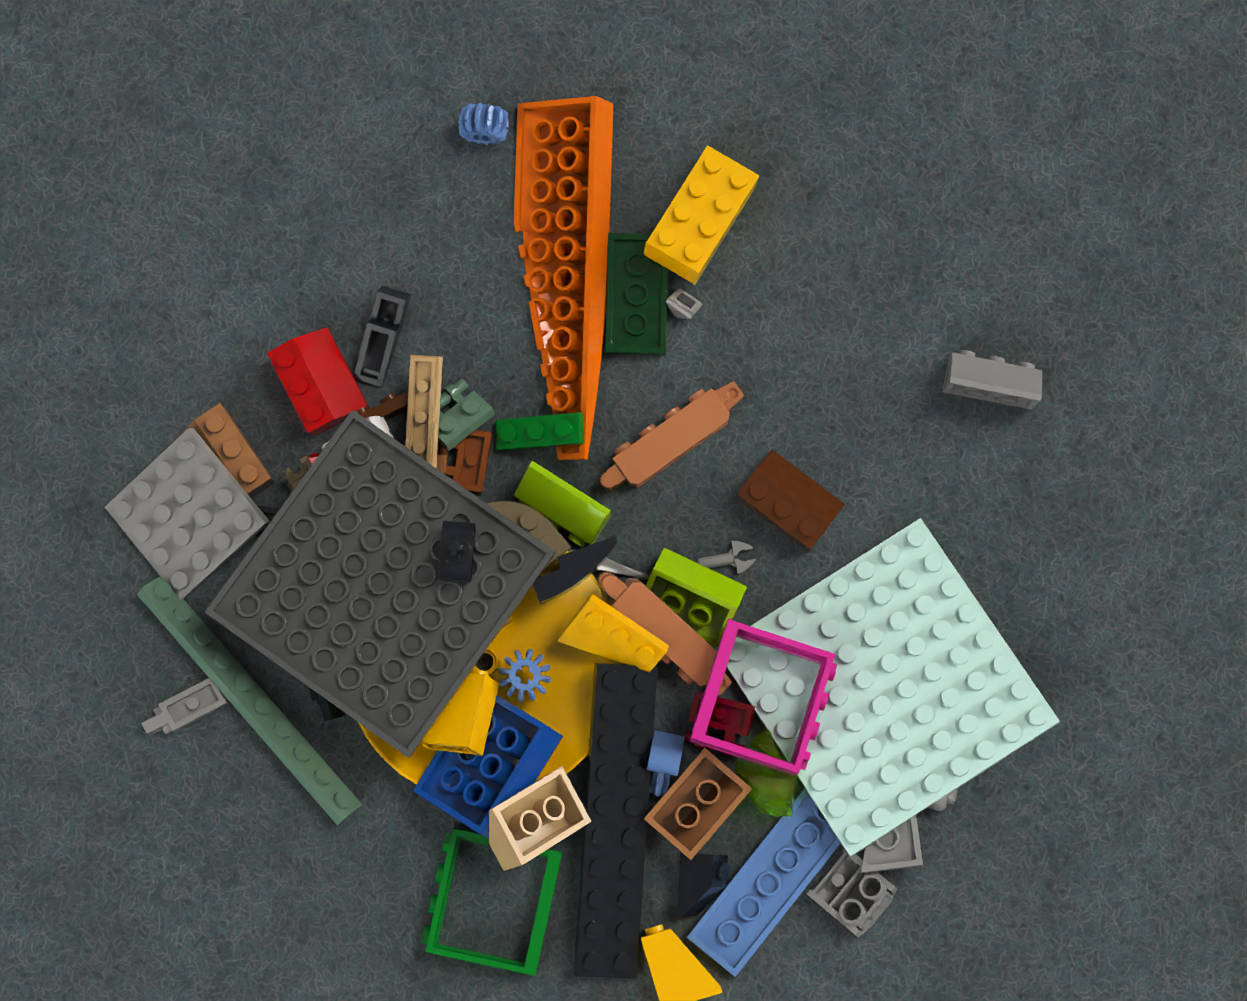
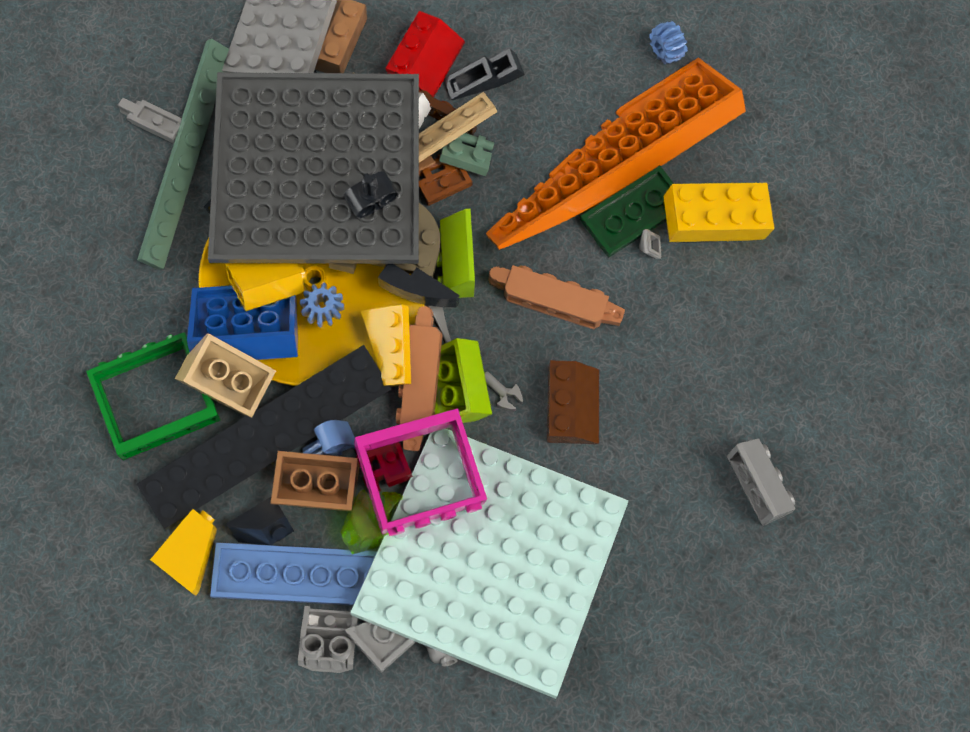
camera: 50 degrees right, 10 degrees down
(539, 432) = (495, 209): green plate -> none

